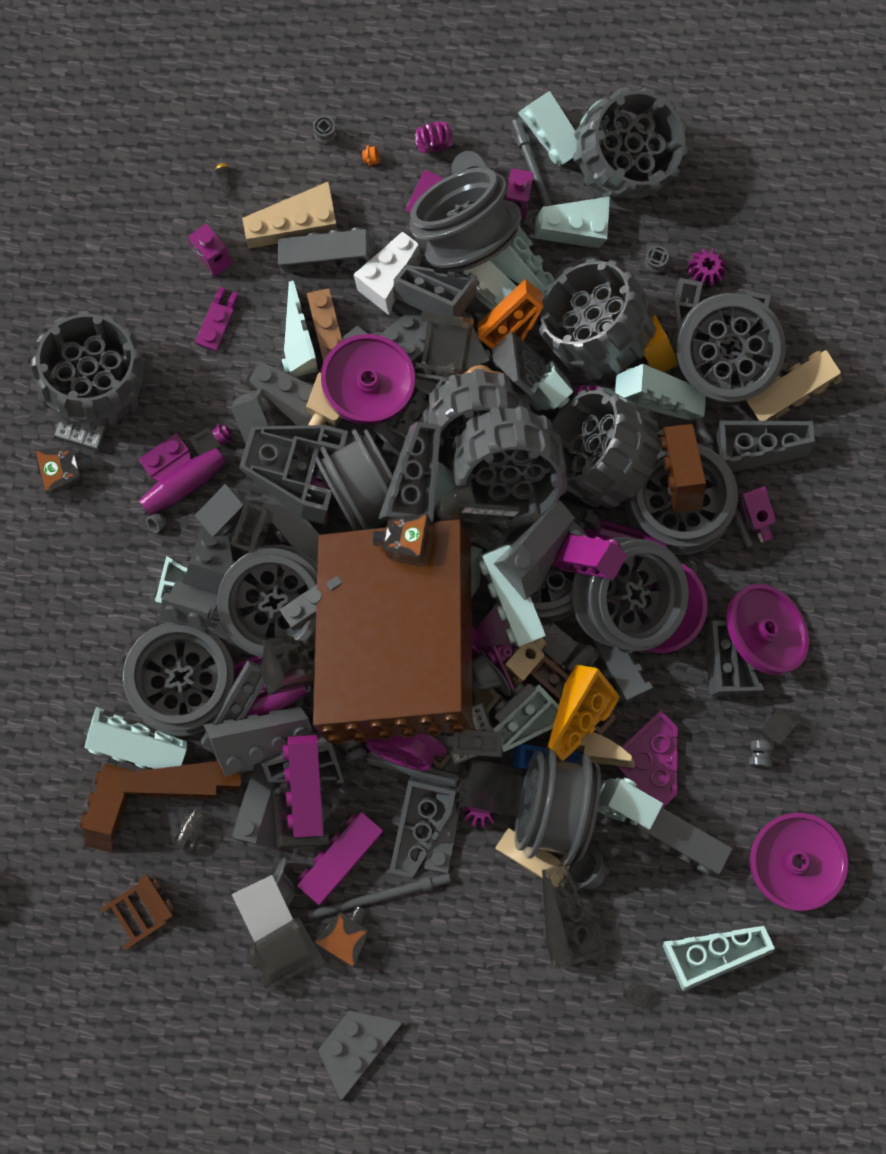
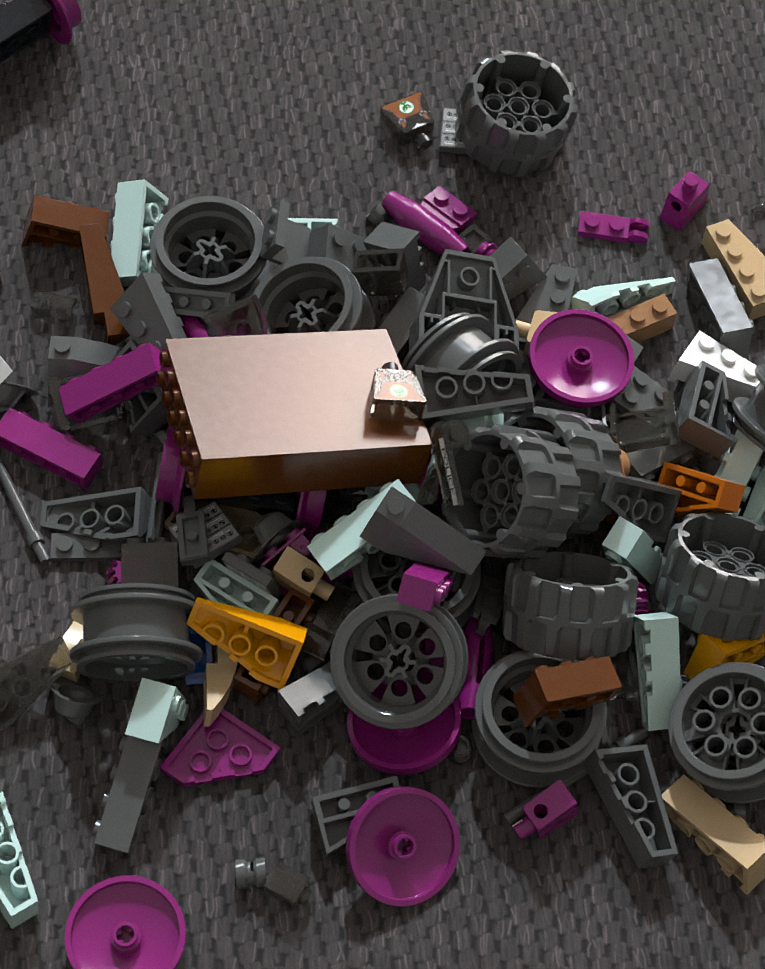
camera: 75 degrees right, 15 degrees down
(304, 607) = (297, 322): dark grey hinge -> none

